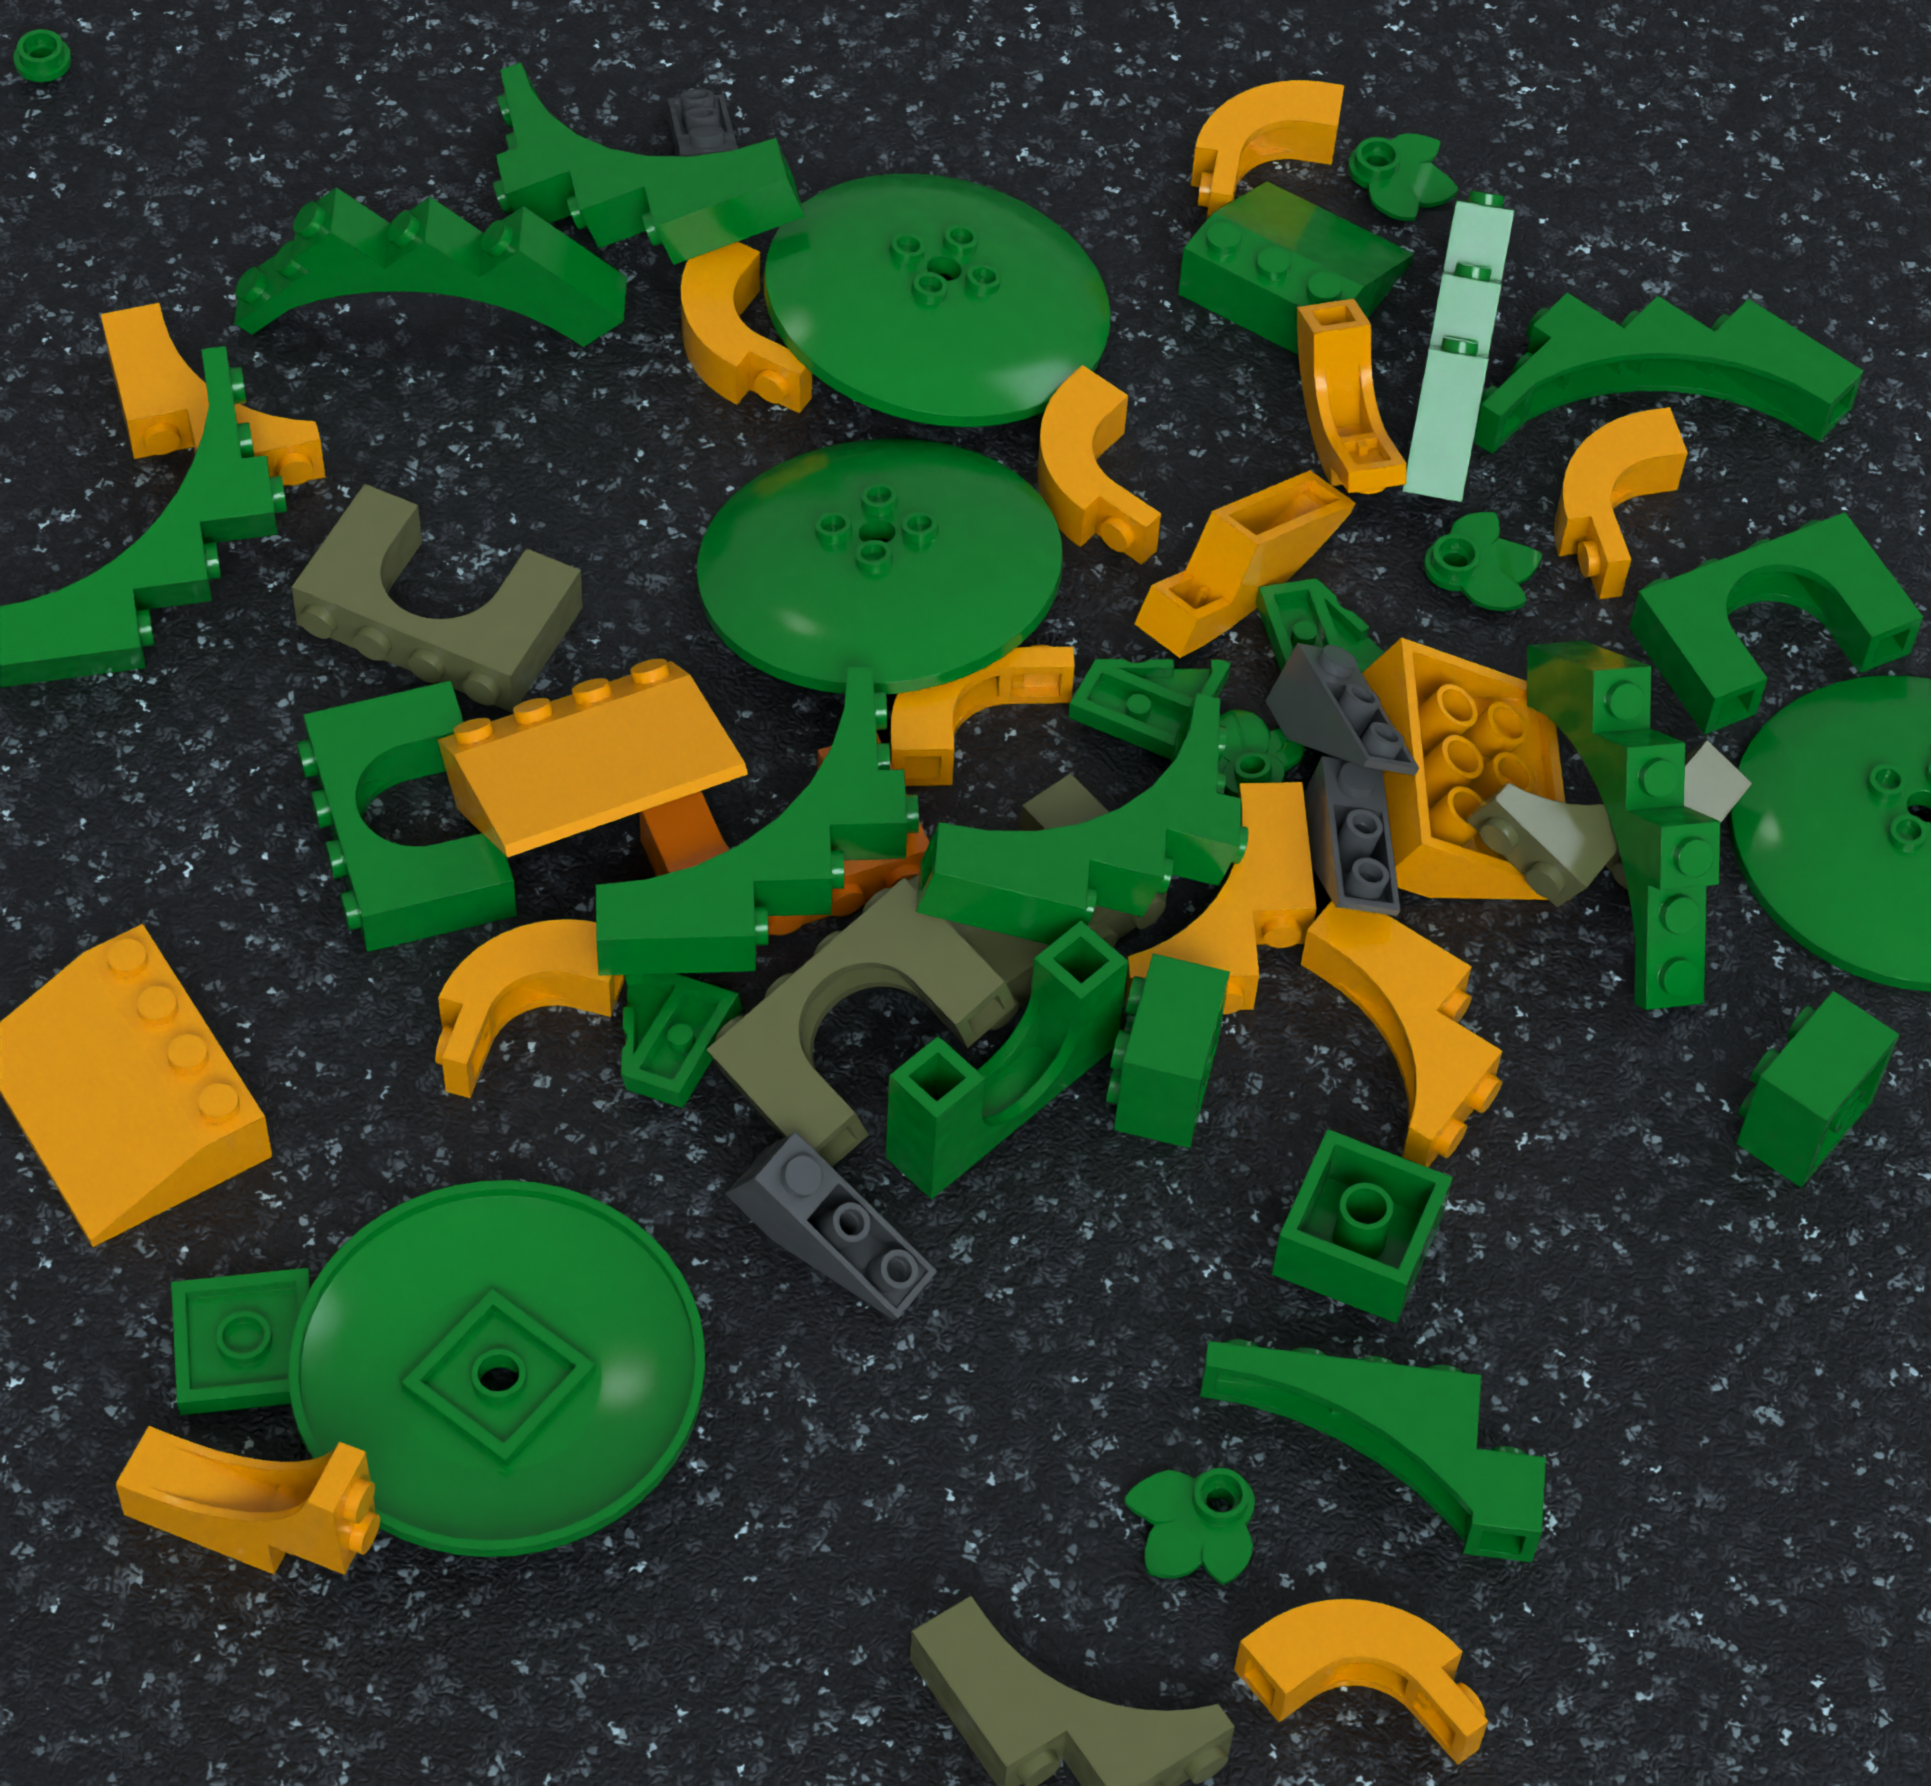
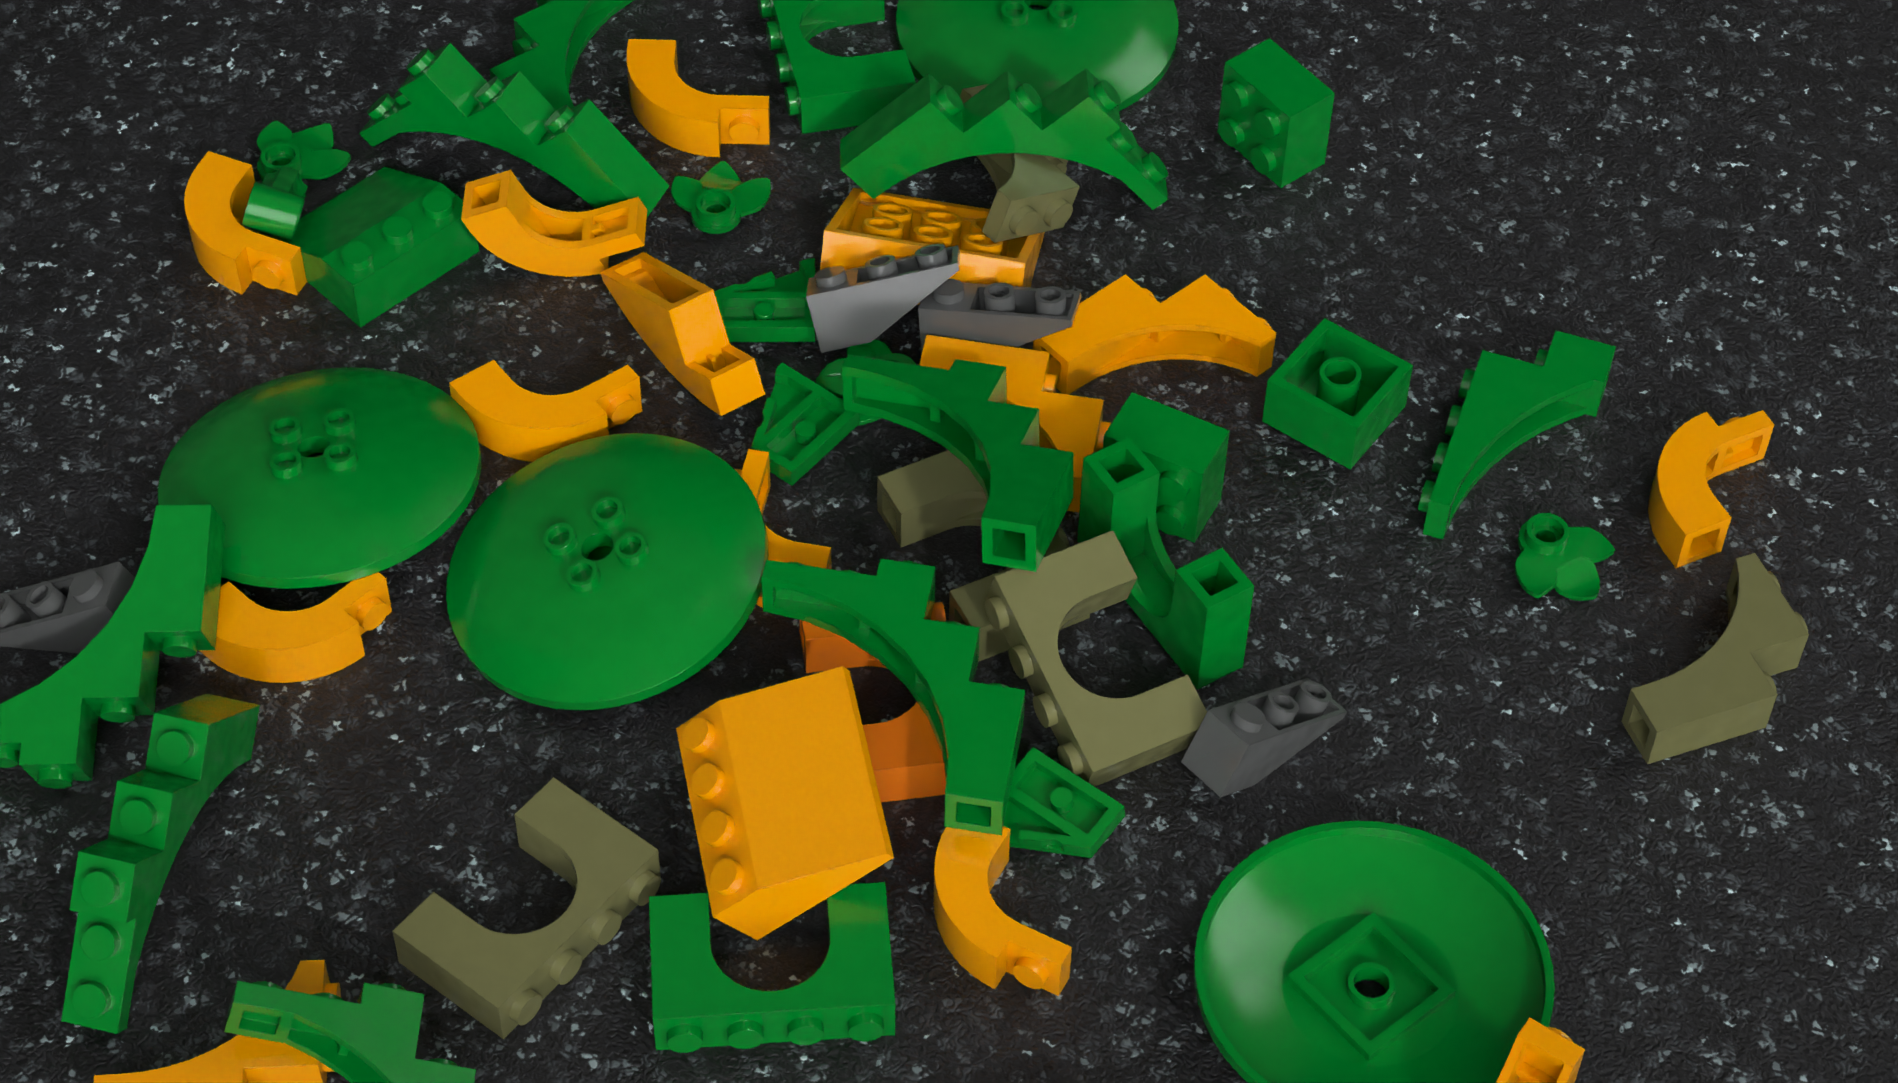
camera: 75 degrees left, 5 degrees down
(1286, 163) = (276, 203): none -> green piece

